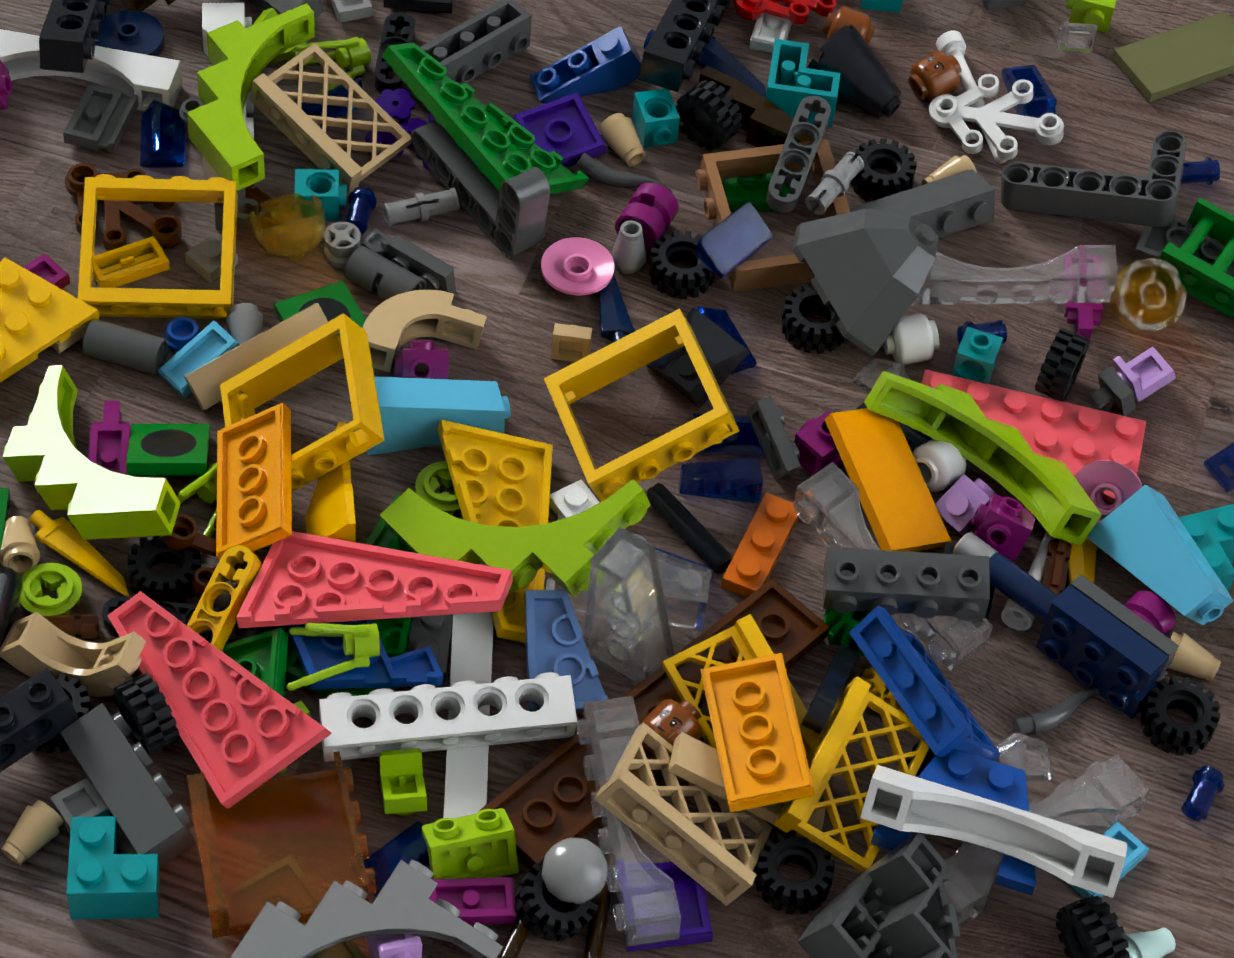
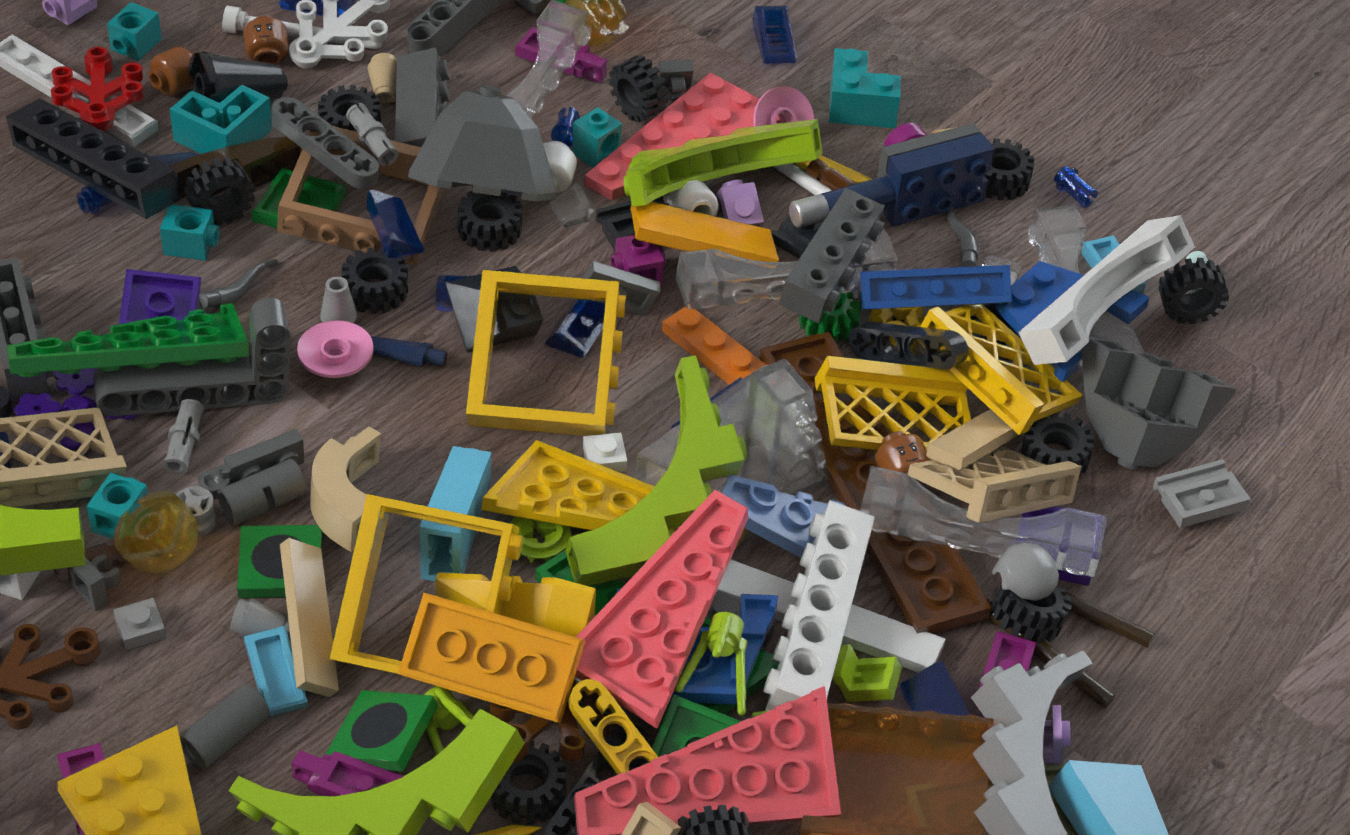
camera: 65 degrees left, 5 degrees down
(129, 268) = (101, 724): yellow tile -> none
(159, 302) = (84, 708): yellow window -> none
(180, 332) = (229, 675): blue plate -> none
(361, 203) = (154, 479): clear blue pin -> none
(423, 352) = (401, 484): magenta brick -> none
(472, 846) = (954, 646): lime bracket -> none
(571, 342) = (423, 385): tan plate -> none
(592, 69) = (94, 254): blue slope -> none
(622, 138) = (198, 263): tan cone -> none
(652, 208) = (304, 277): magenta wheel -> none
(689, 527) = (662, 387): black axle -> none
(723, 479) = (640, 337): clear blue slope -> none
(756, 733) = (947, 397): light orange tile -> none
(1003, 525) = (781, 186): magenta brick -> none
(1145, 373) = (663, 47): lavender bracket -> none
(1161, 553) = (870, 105): medium azure slope -> none

